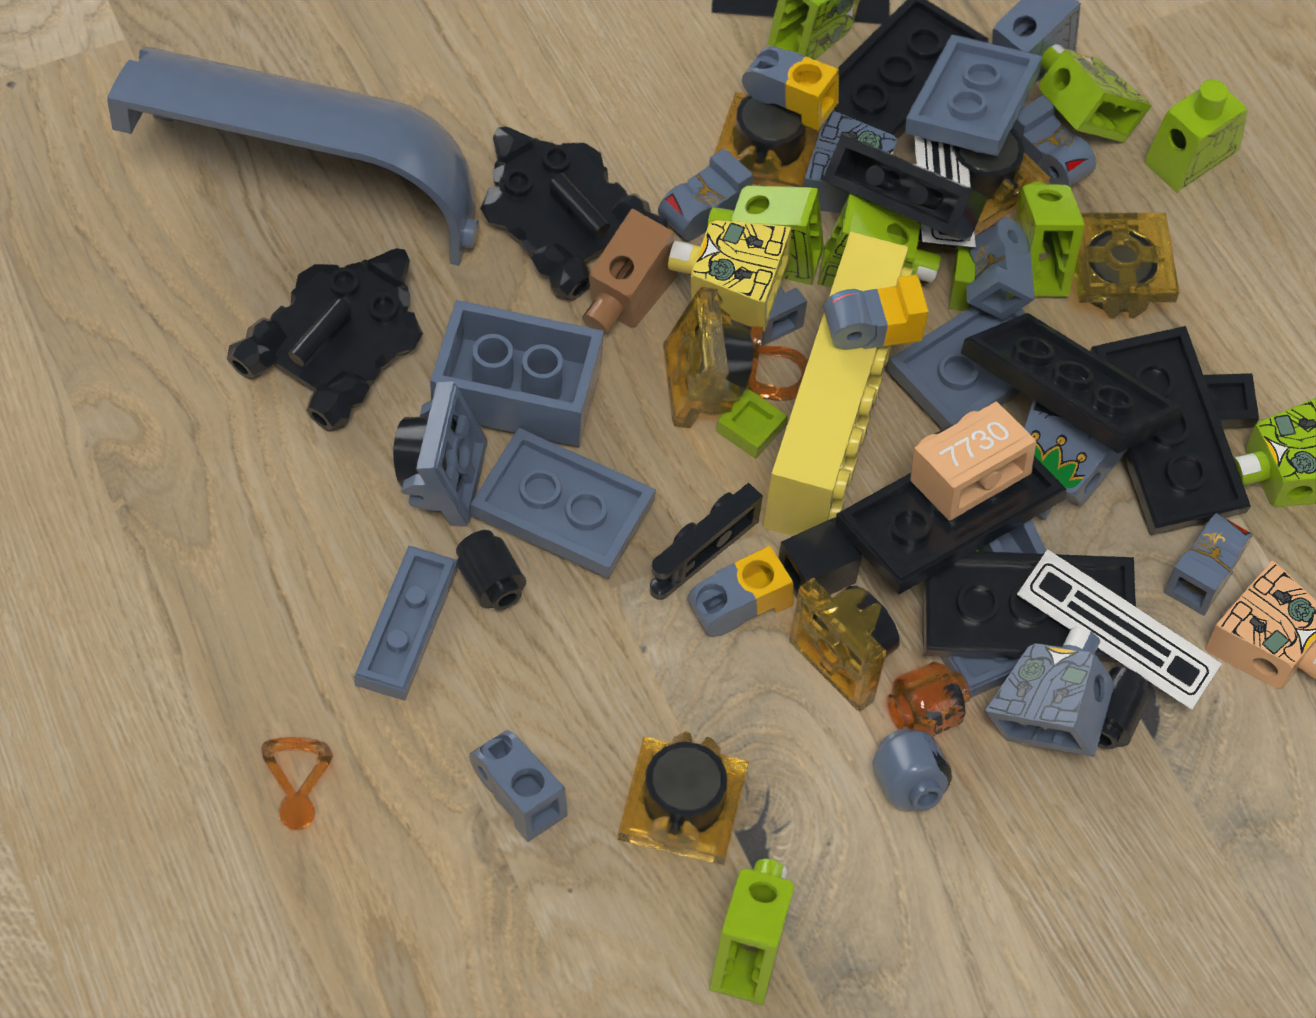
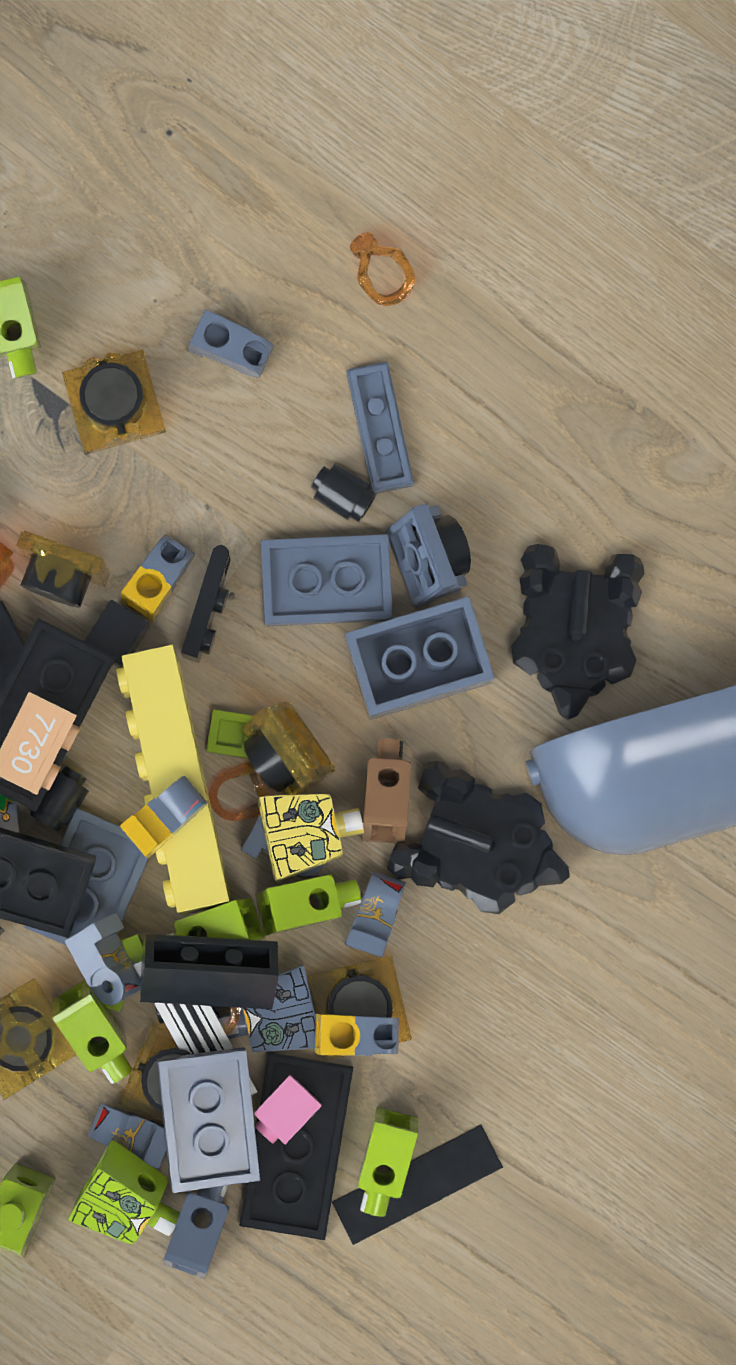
camera: 150 degrees right, 25 degrees up
(889, 81) = (286, 1111): none -> bright pink brick

